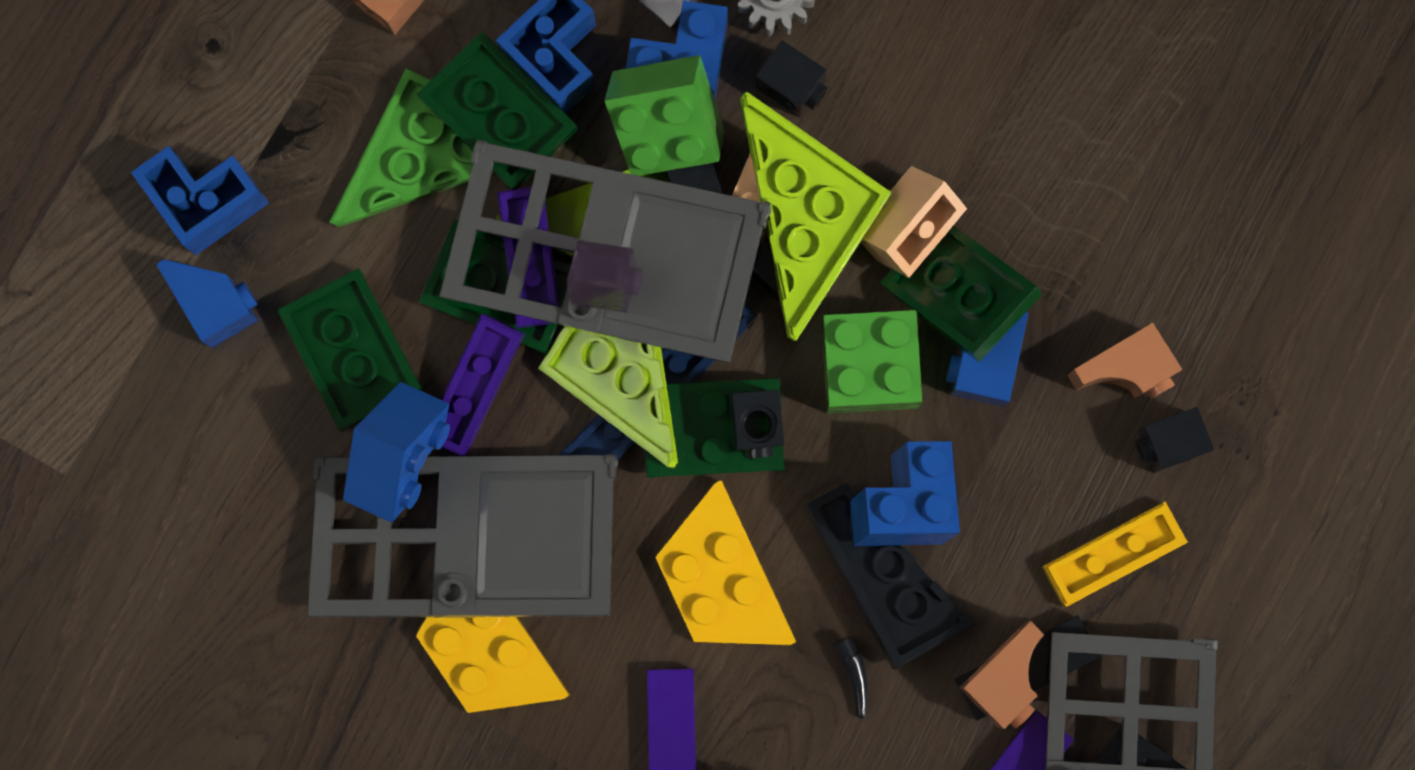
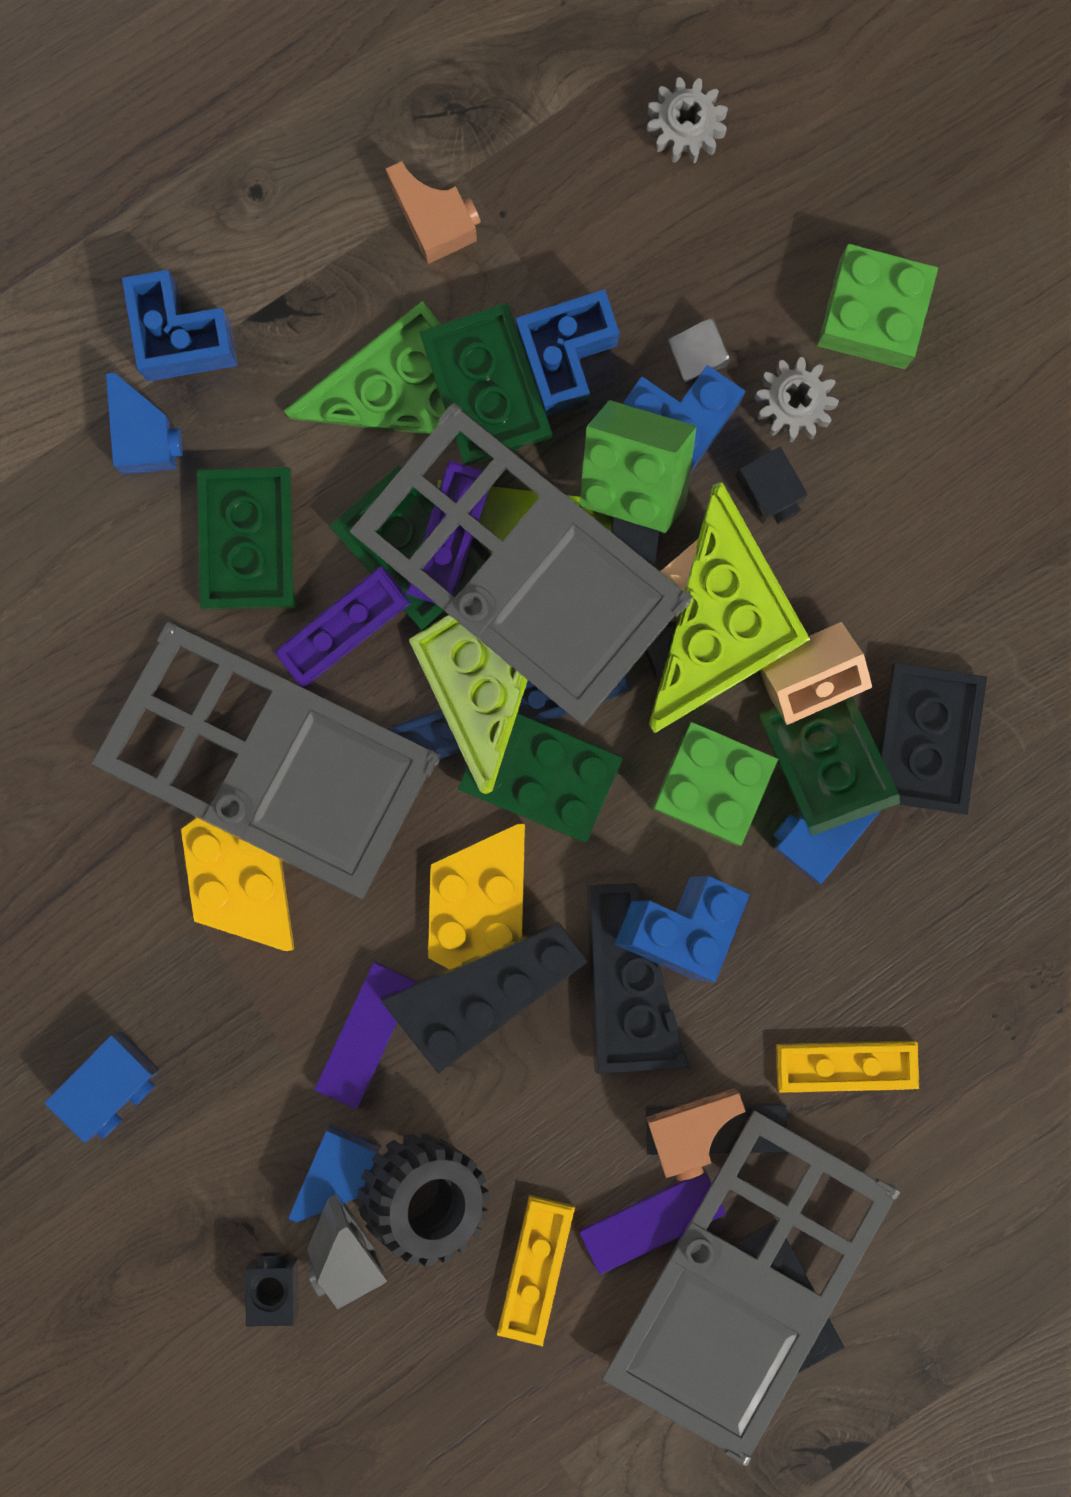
camera: 20 degrees right, 5 degrees up
(392, 449) = (238, 653): blue brick -> none
(603, 276) = (506, 590): clear purple brick -> none
(751, 660) = (470, 1002): none -> black wing
(769, 406) = (572, 770): black brick -> none
(855, 670) = (561, 1053): black helmet -> none
(1041, 226) = (932, 736): none -> black plate
(1136, 363) = (956, 904): nougat arch -> none
(1173, 440) = (953, 991): black brick -> none

